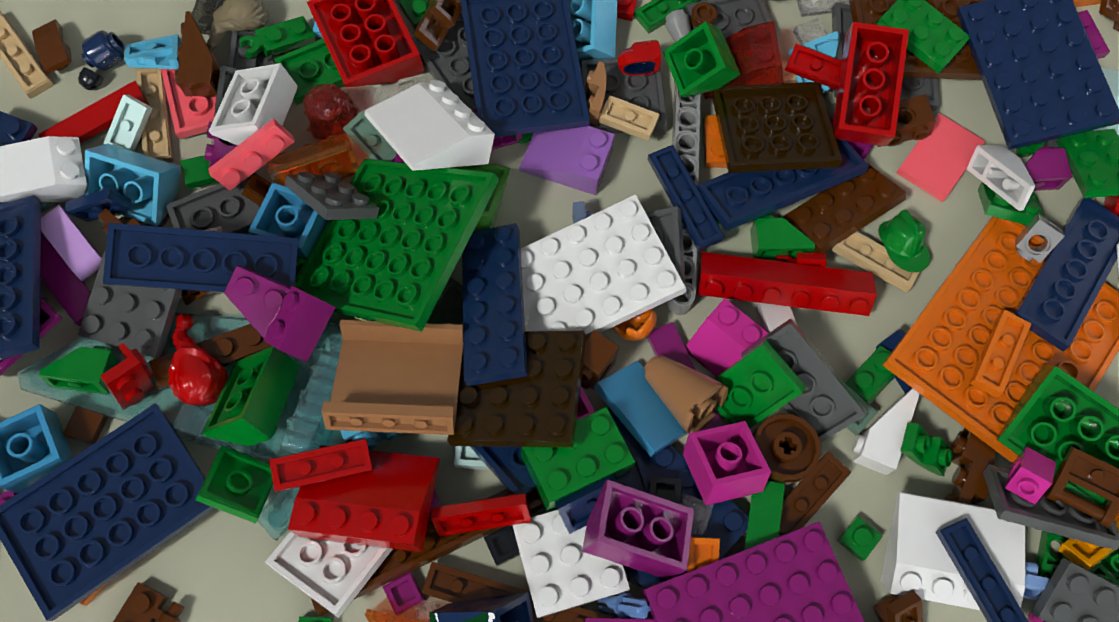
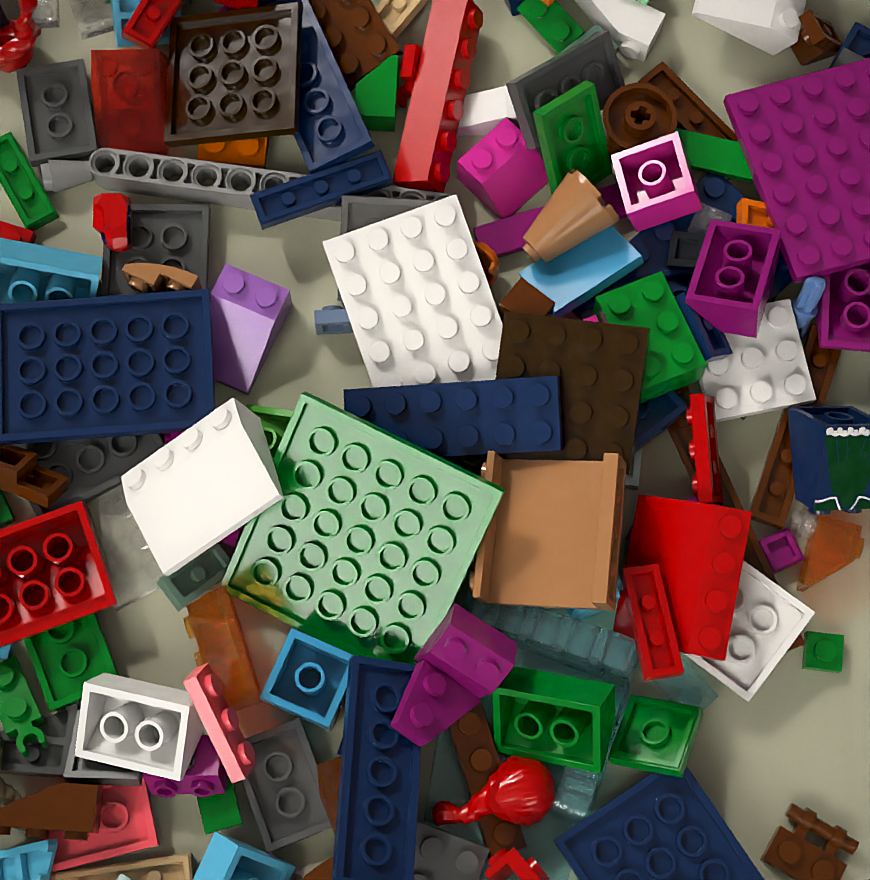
camera: 85 degrees left, 5 degrees up
(256, 188) = (260, 723): reddish brown tile -> none
(328, 110) = (147, 632): clear red helmet -> none
(331, 196) = (290, 617): dark grey plate -> none
(502, 545) = (732, 438): black tile -> none
(629, 118) = (202, 243): tan plate -> none
(701, 61) = (135, 147): green slope -> none
(703, 12) = (52, 140): reddish brown tile -> none
(859, 538) = (730, 67): green plate -> none

